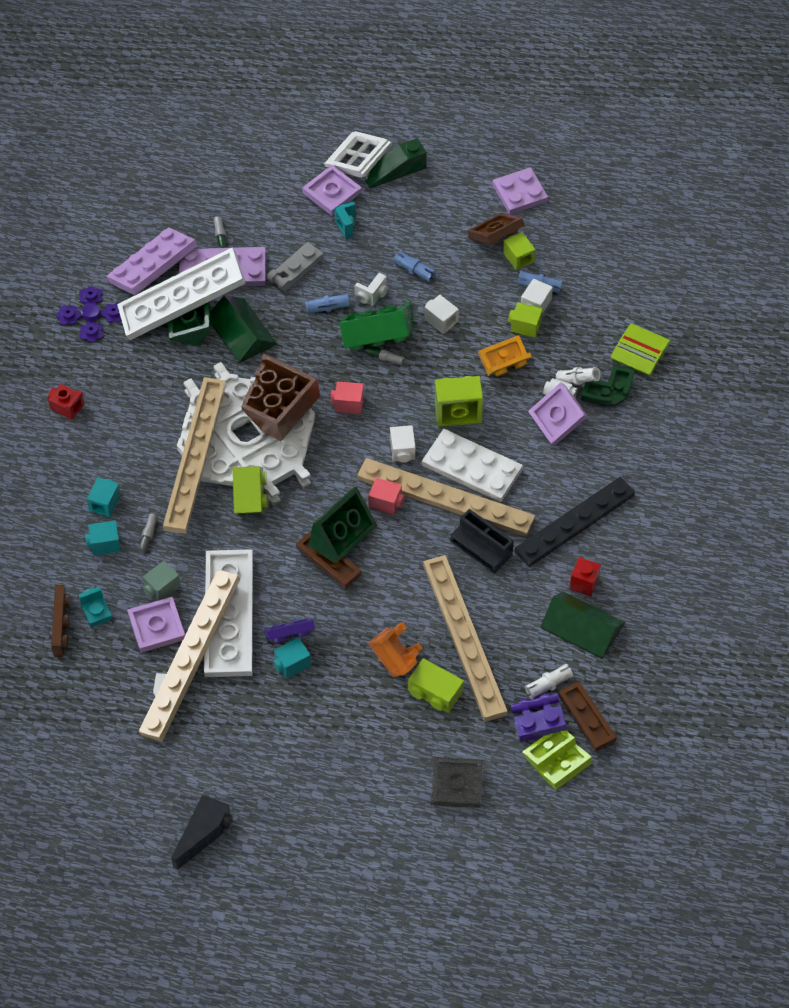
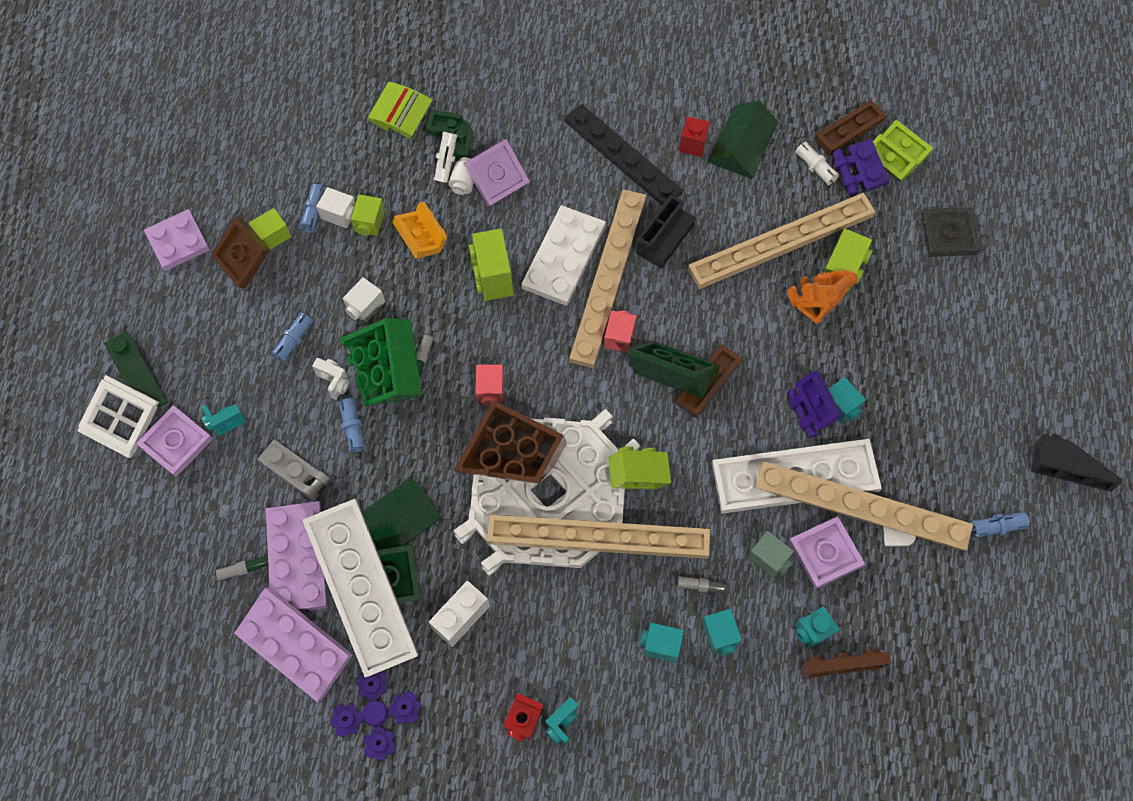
camera: 95 degrees left, 10 degrees up
(57, 422) = (562, 716): none -> teal bracket
(153, 364) = (459, 613): none -> white brick
(156, 762) = (999, 524): none -> medium blue pin
(402, 443) = (548, 321): white brick -> none

